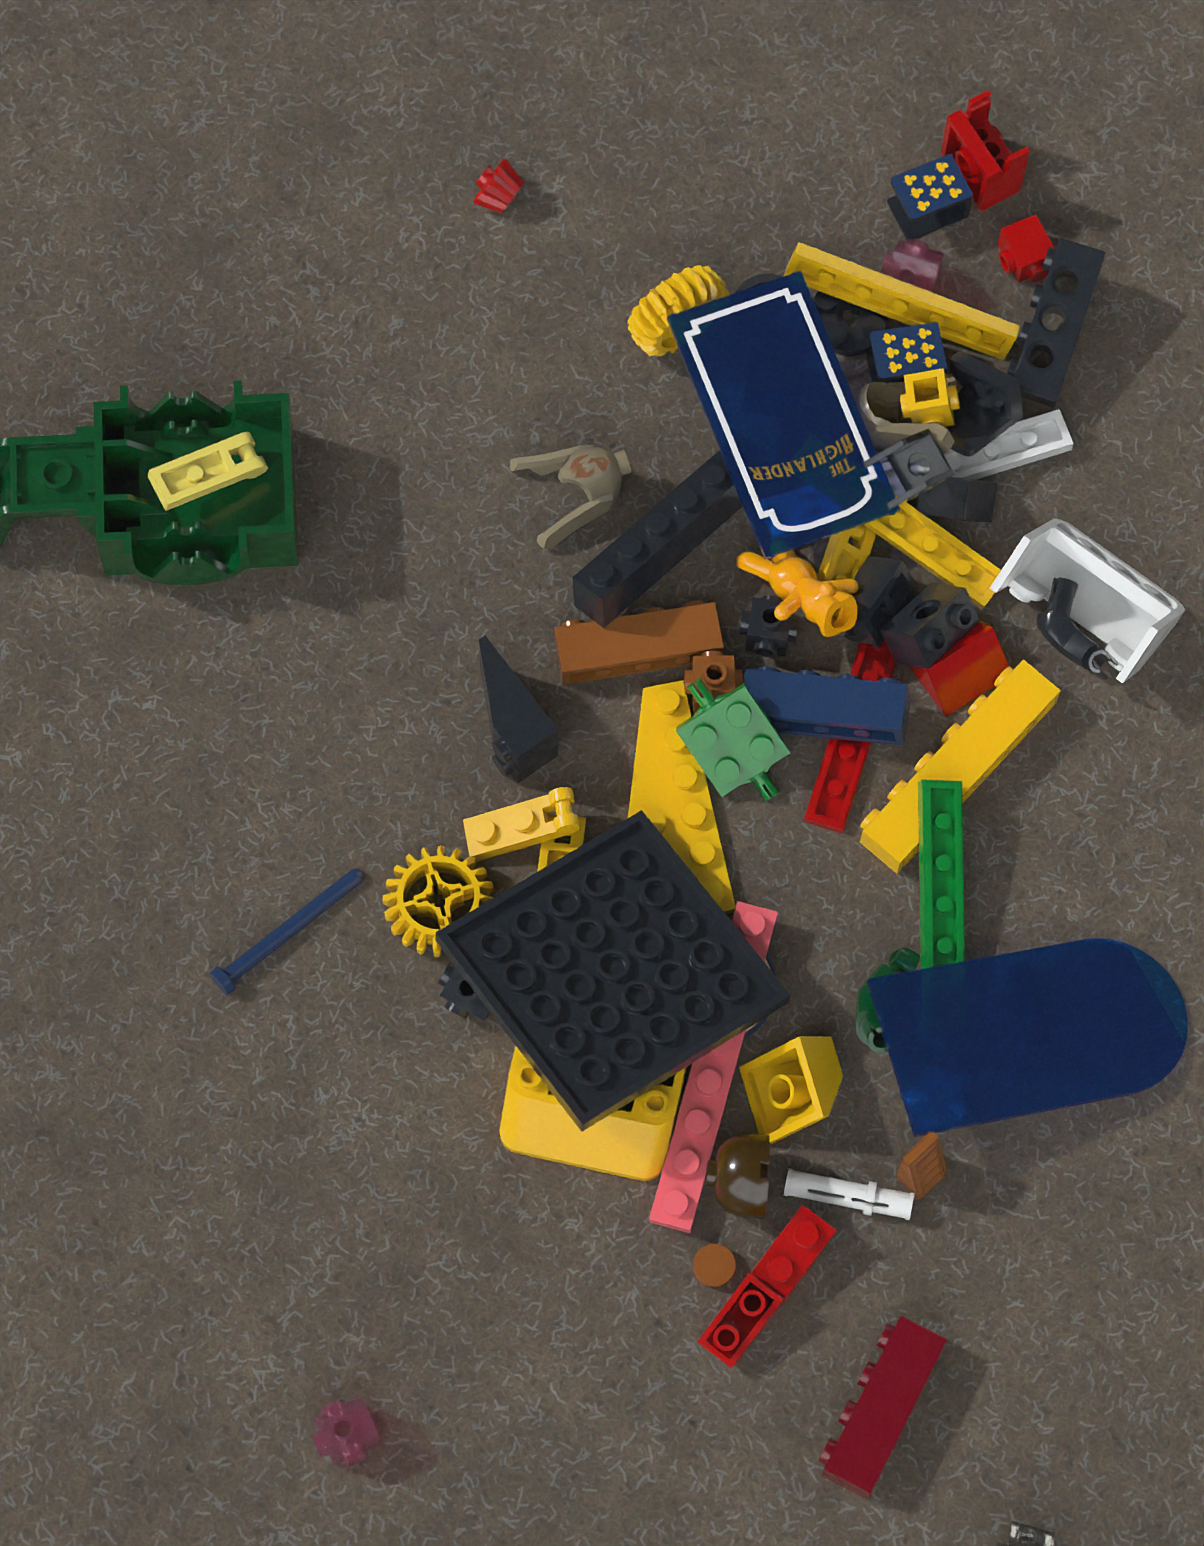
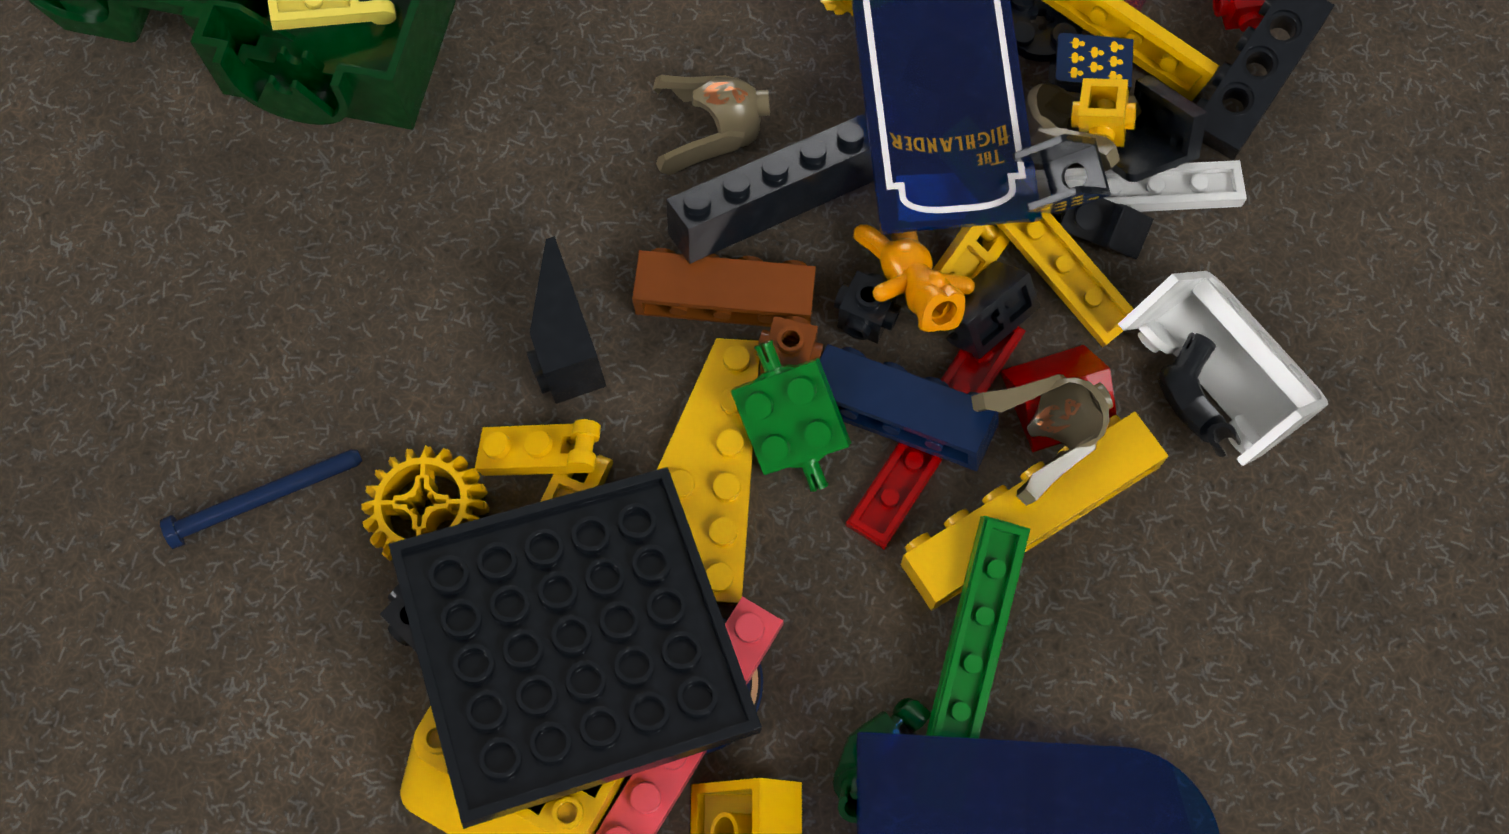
camera: 20 degrees right, 0 degrees up
(930, 625) = (1041, 347): black brick -> none
(966, 675) = (1067, 412): none -> dark tan piece

